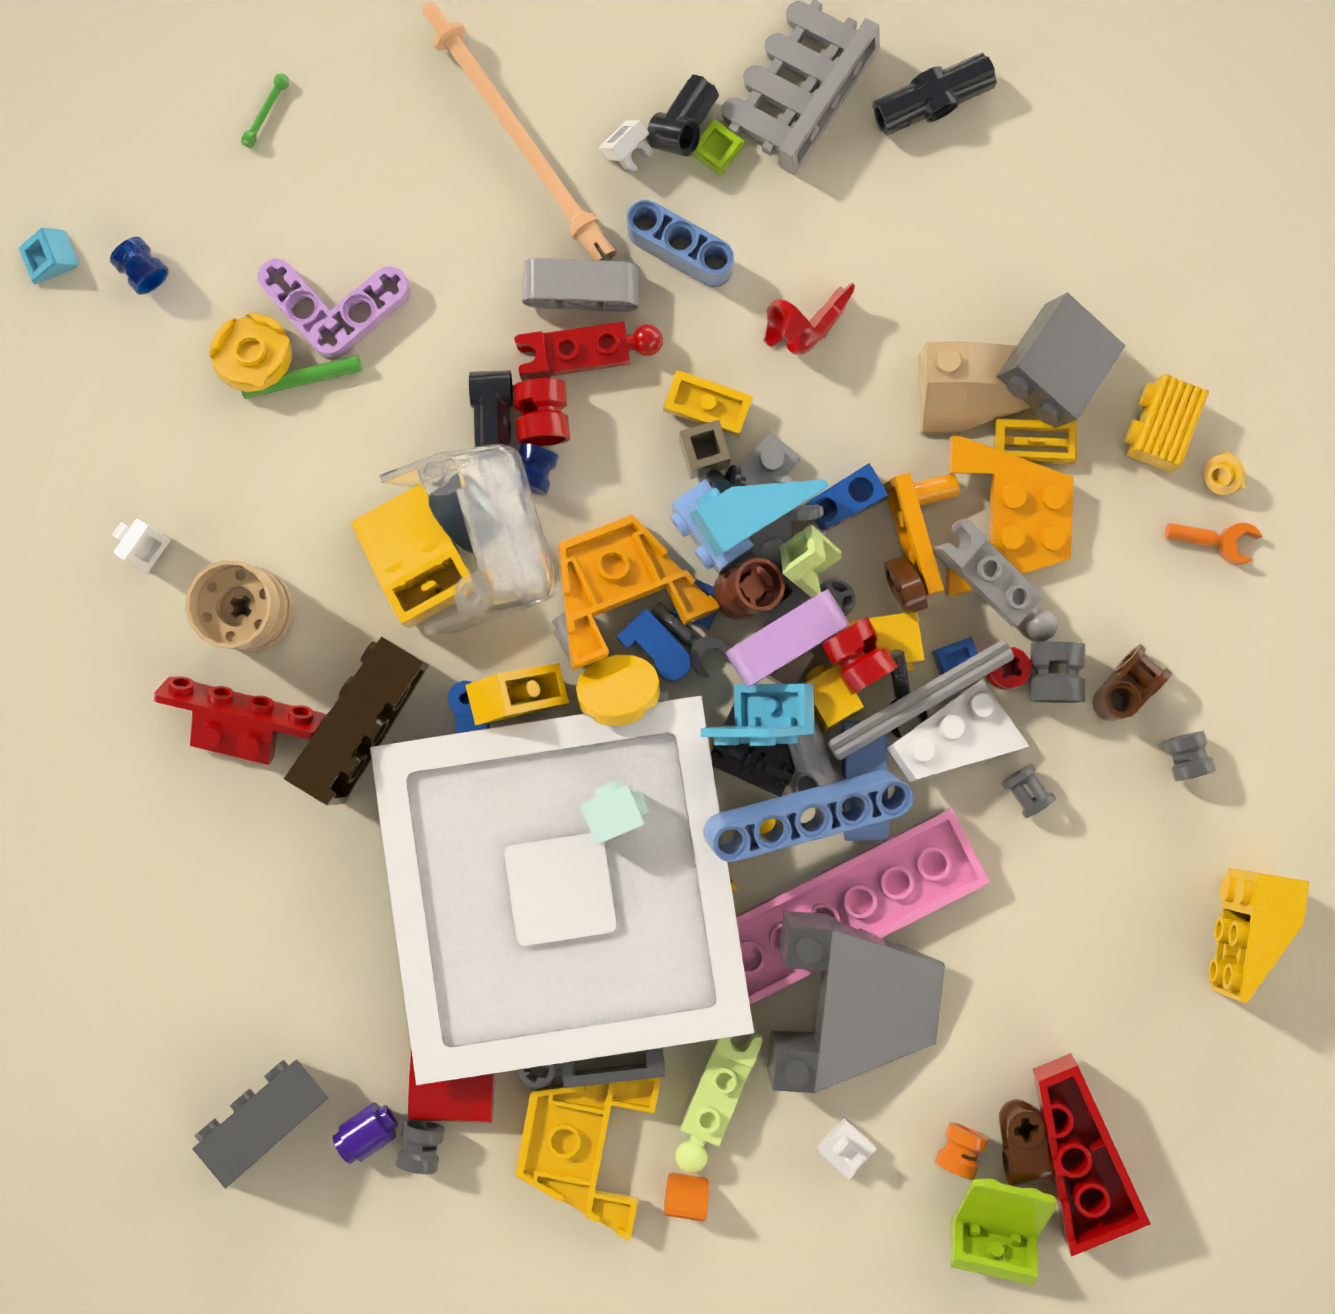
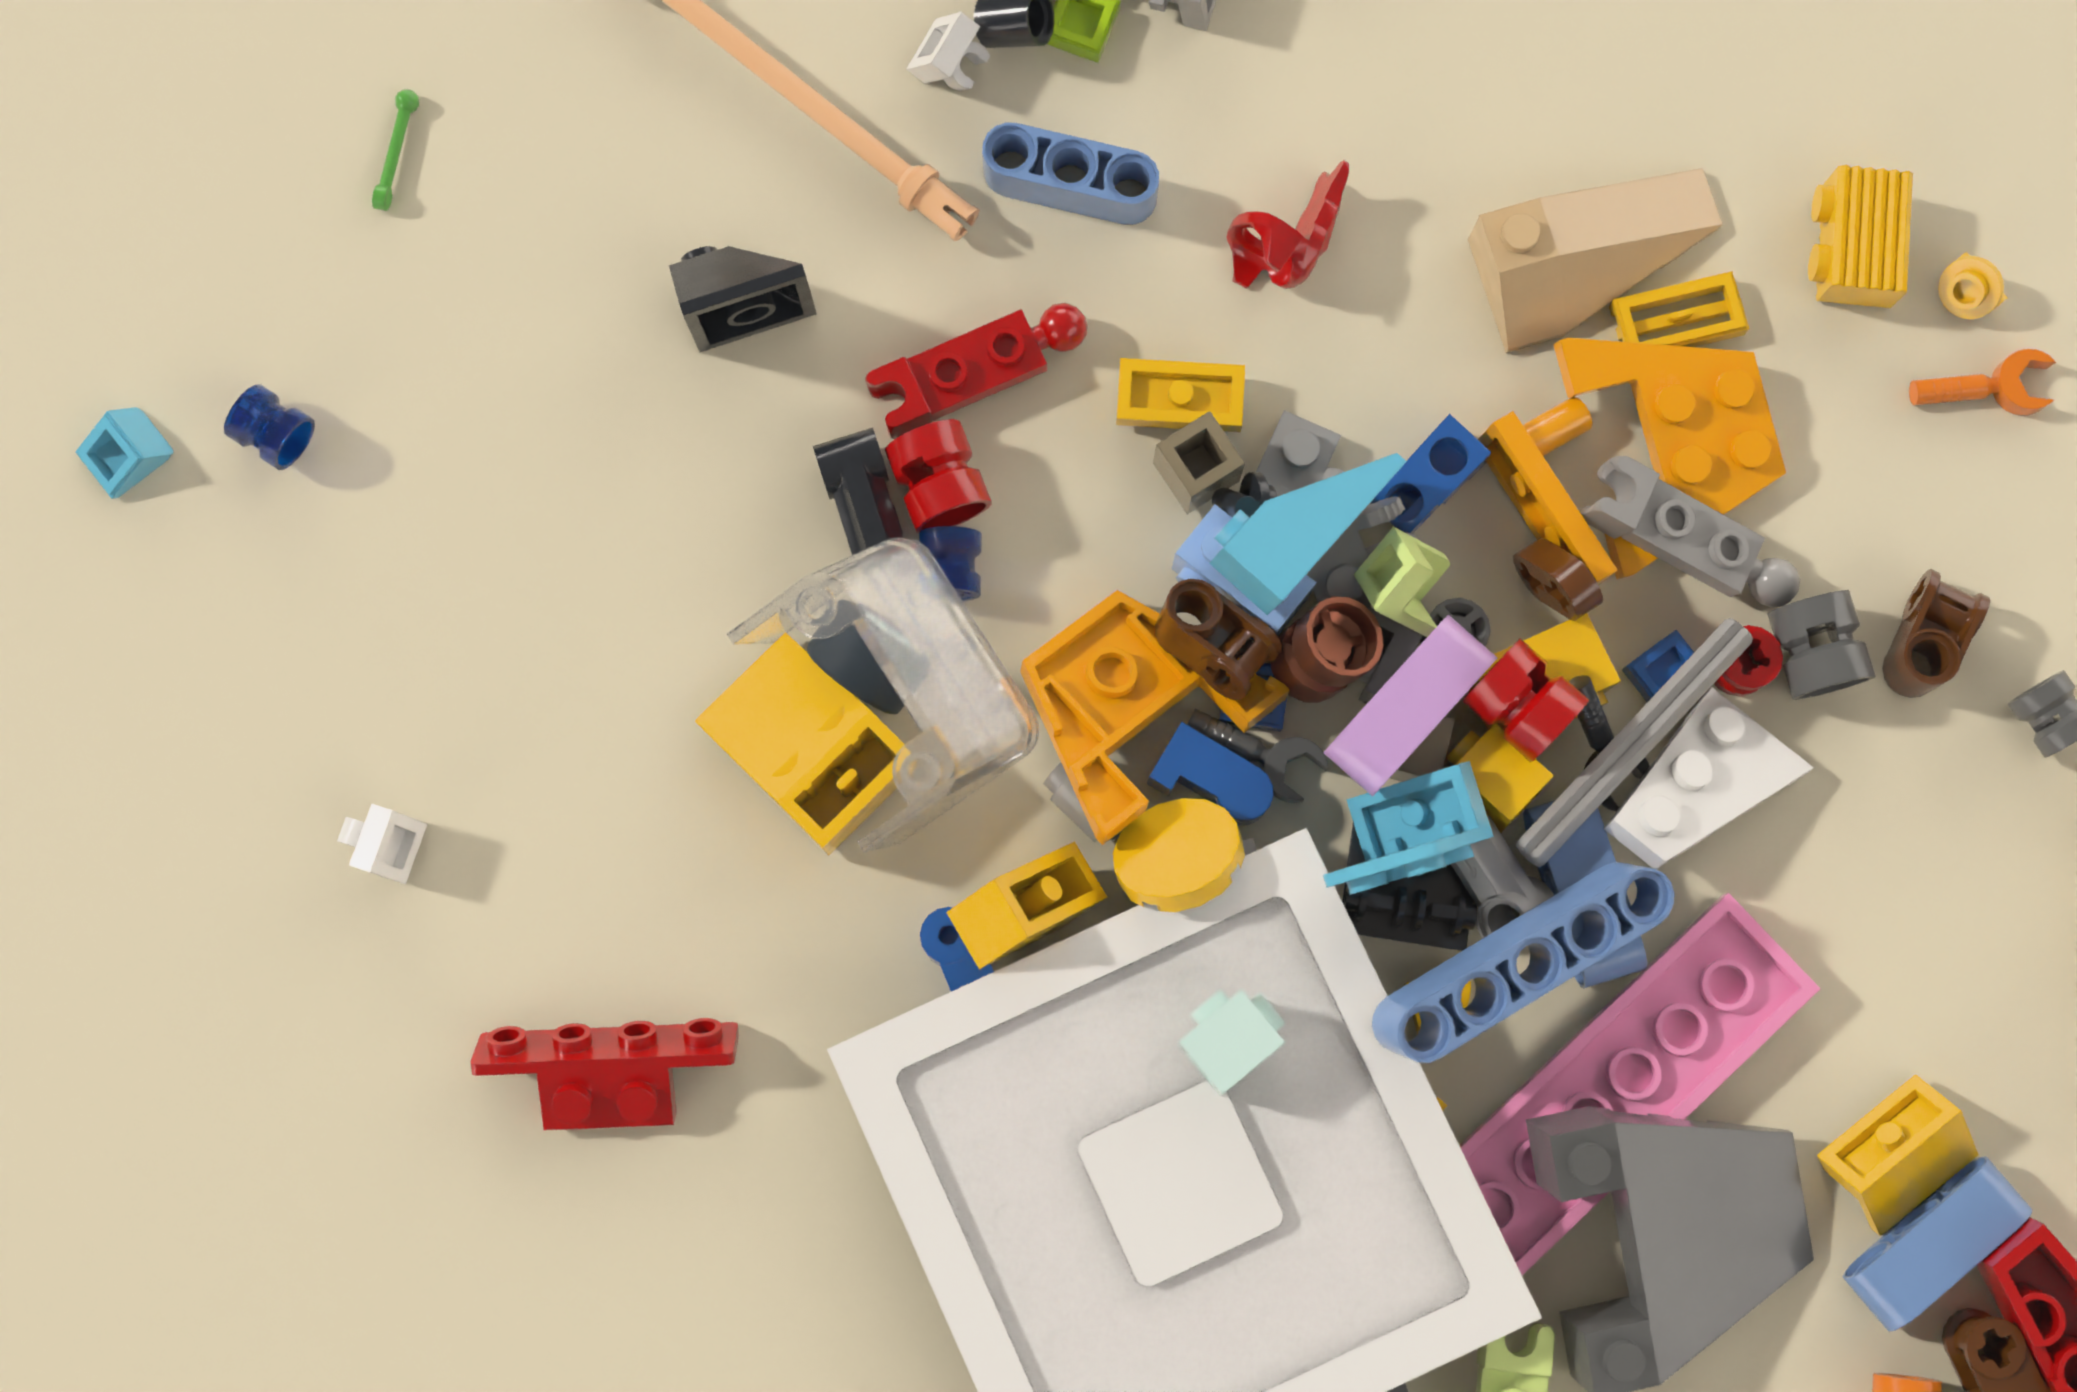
camera: 15 degrees left, 5 degrees down
(218, 612) = (529, 887): tan wheel -> none
(251, 352) = (473, 509): yellow tile -> none
(311, 375) = (557, 525): bright green bar -> none
(327, 320) = (572, 429): lavender beam -> none
(356, 722) = (794, 1016): dark brown wedge -> none
(447, 262) = (738, 294): none -> black slope
(581, 284) = (940, 273): light grey beam -> none
(686, 569) = (1219, 639): none -> reddish brown piece
(1008, 995) = (1900, 1152): none -> yellow panel
(1013, 1056) = (1937, 1243): none -> medium blue beam
(1030, 805) = (1855, 839): dark grey bush -> none
(1061, 361) = (1683, 188): brick -> none

